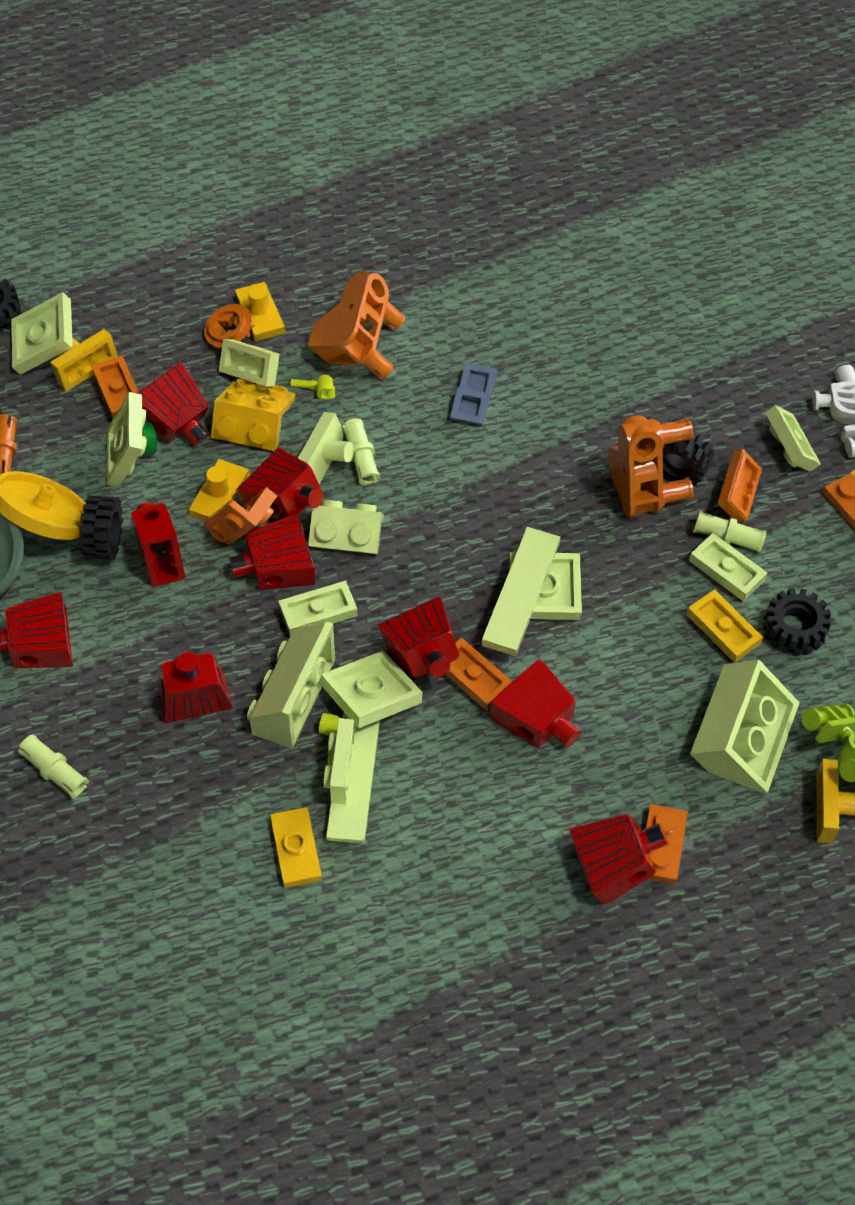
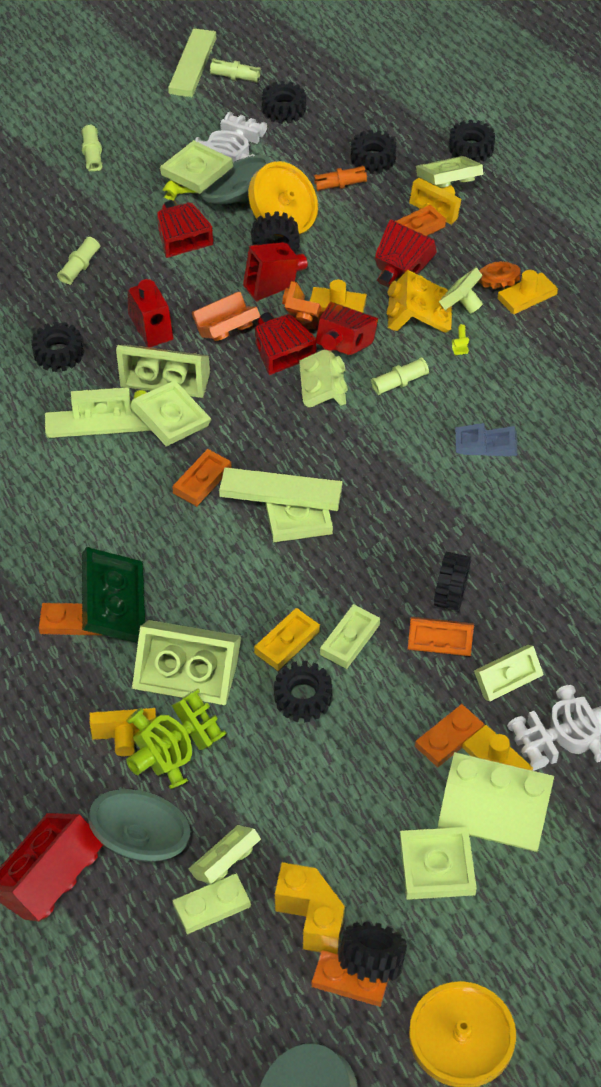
camera: 80 degrees right, 5 degrees down
(125, 439) = (357, 230): yellowish green plate -> none
(151, 439) = (369, 248): green tile -> none
(211, 789) = (57, 335): none -> black tyre
(221, 607) = (223, 316): none -> orange bracket
(296, 847) = (37, 400): yellow plate -> none
(324, 604) = (241, 375): yellowish green plate -> none
(326, 445) = (391, 349): yellowish green tile -> none
(341, 334) = (526, 339): orange piece -> none
(421, 639) = (218, 433): red torso -> none
(536, 707) = (177, 518): red torso -> none
(617, 854) = (46, 578): red torso -> none
(638, 464) = (422, 548): orange piece -> none
(649, 787) = (112, 594): none -> dark green plate
(730, 531) = (389, 634): yellowish green pin -> none

